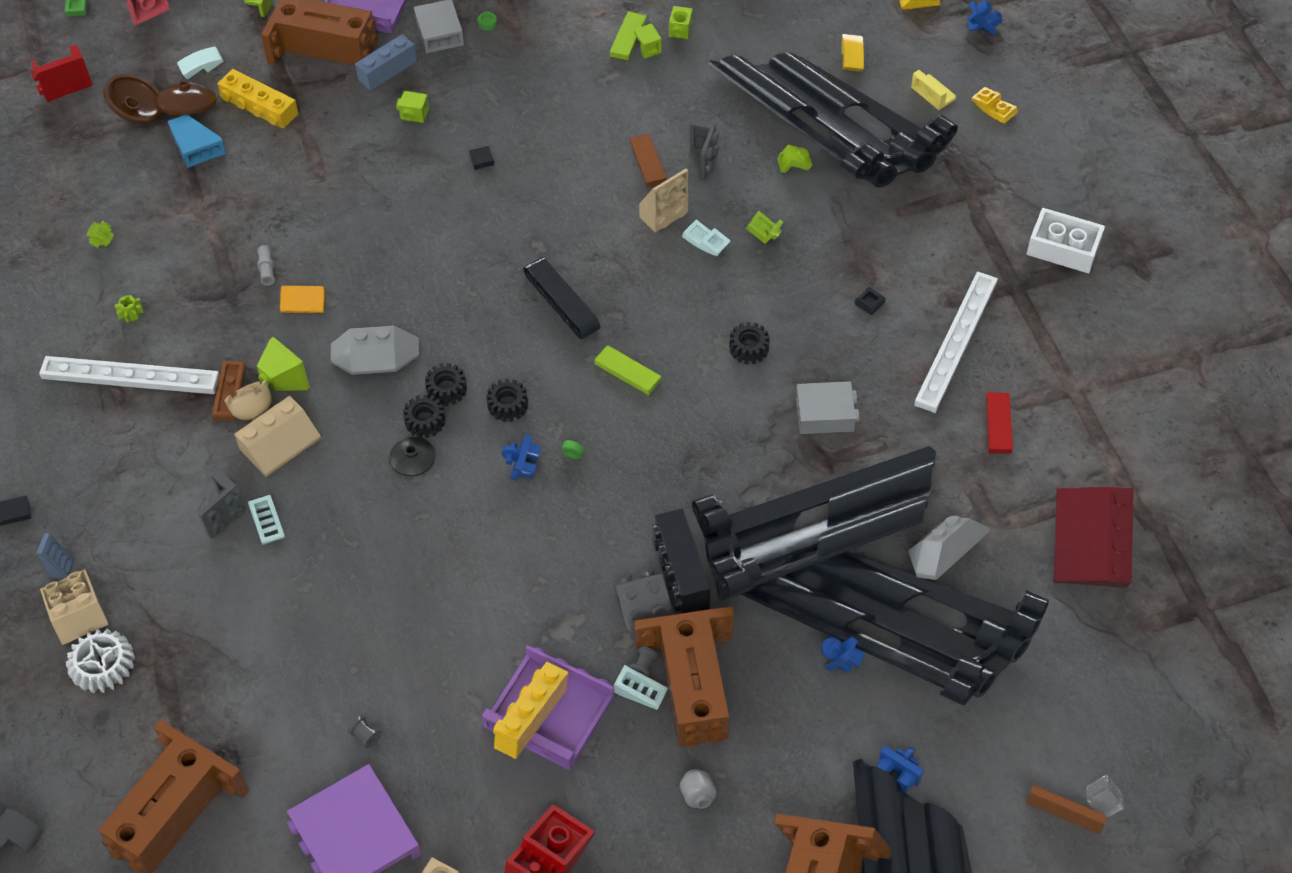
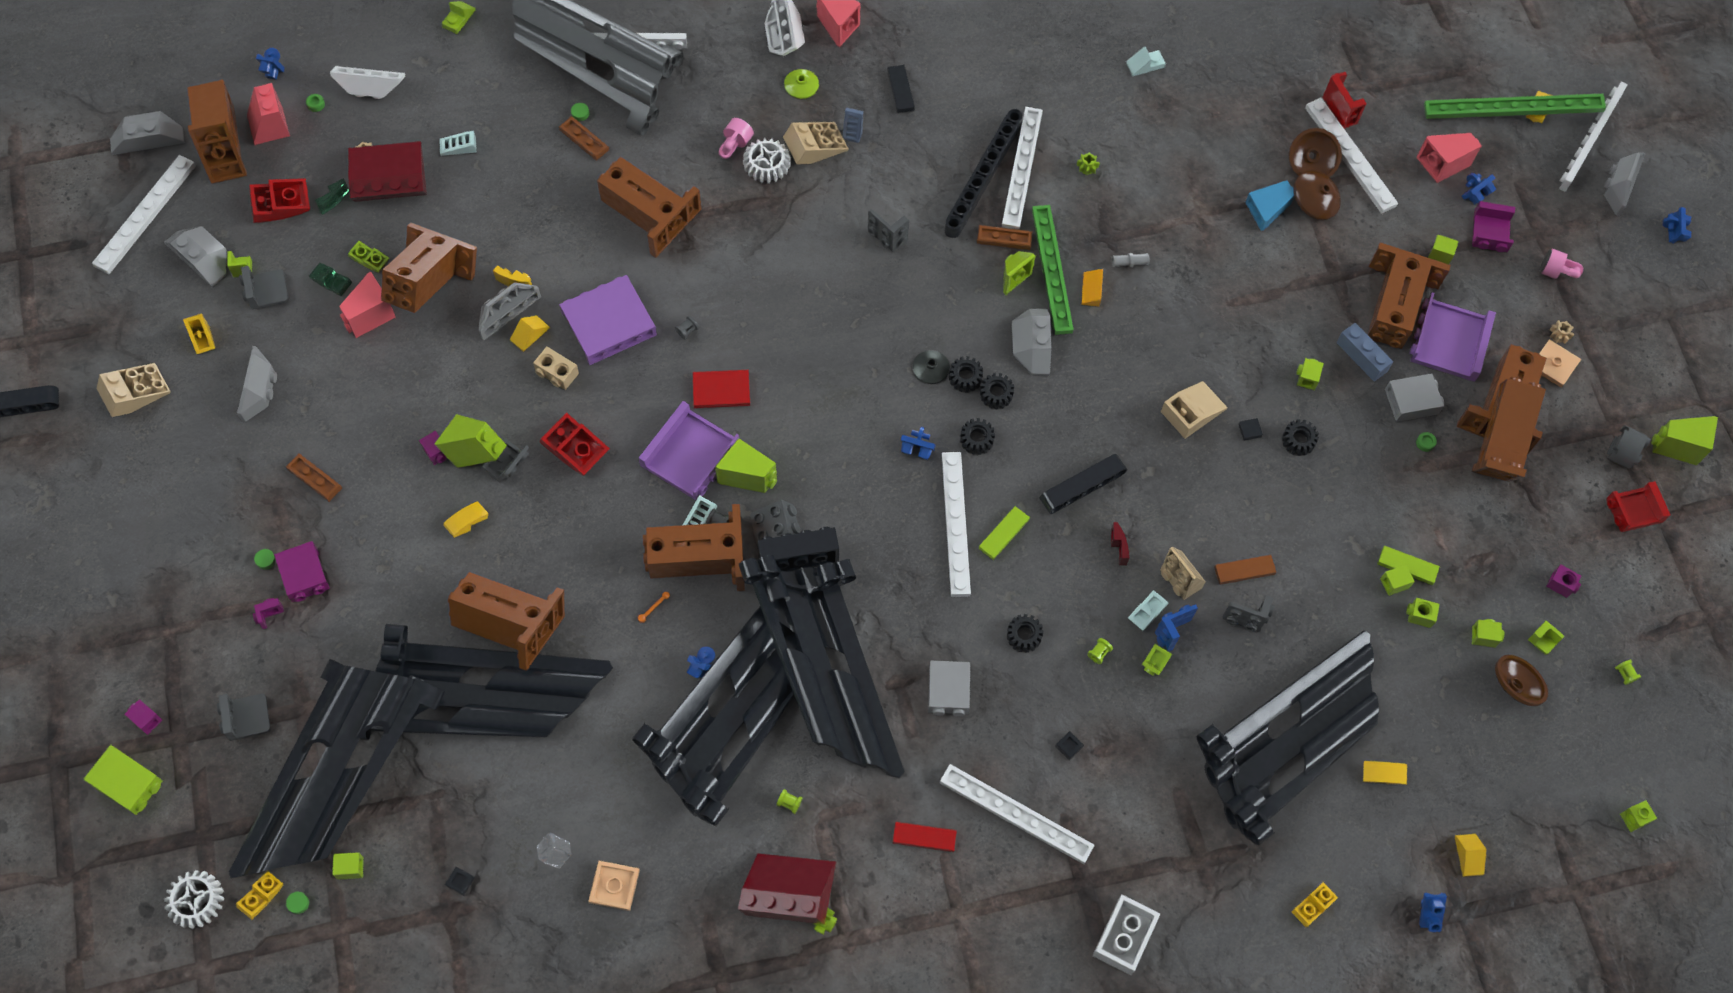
camera: 90 degrees right, 10 degrees up
(58, 700) = (737, 134): none -> bright pink piece
(100, 234) = (1165, 139): lime gear -> none
(136, 413) = (983, 179): none -> black beam
(145, 69) = (1353, 157): none -> white plate
(206, 58) = (1367, 206): light aqua slope -> none
(250, 401) = (985, 247): tan cylinder -> none
(256, 341) = (1052, 270): none -> bright green plate
(257, 98) = (1320, 250): yellow brick -> none
(259, 504) = (882, 256): light aqua slope -> none
(277, 436) = (953, 269): tan slope -> none
(453, 683) = (721, 388): none -> red tile
(463, 203) = (1192, 408): none -> tan slope
(494, 123) = (1295, 446): none -> black tyre
(530, 710) = (678, 430): yellow brick -> none
(572, 449) = (922, 482): bright green tile -> none
(572, 629) = (746, 469): none -> lime slope
(620, 417) = (956, 525): none -> white plate
(637, 259) = (1119, 540): none -> dark red slope
(698, 789) = (606, 548): light grey head -> none
(730, 214) = (1166, 631): none -> blue bracket
(760, 275) = (1100, 650): none -> lime bush
(784, 739) = (642, 617): none -> orange hinge
(794, 157) = (1242, 699): lime bracket -> none
(902, 764) = (605, 700): blue hips -> none
(932, 90) = (1336, 847): light yellow panel -> none
(945, 546) = (794, 762): light grey wedge -> none
(989, 552) = (789, 801): none -> lime bush
(1066, 809) = (547, 818): dark orange tile -> none
(1129, 725) = (614, 885): none -> light nougat plate

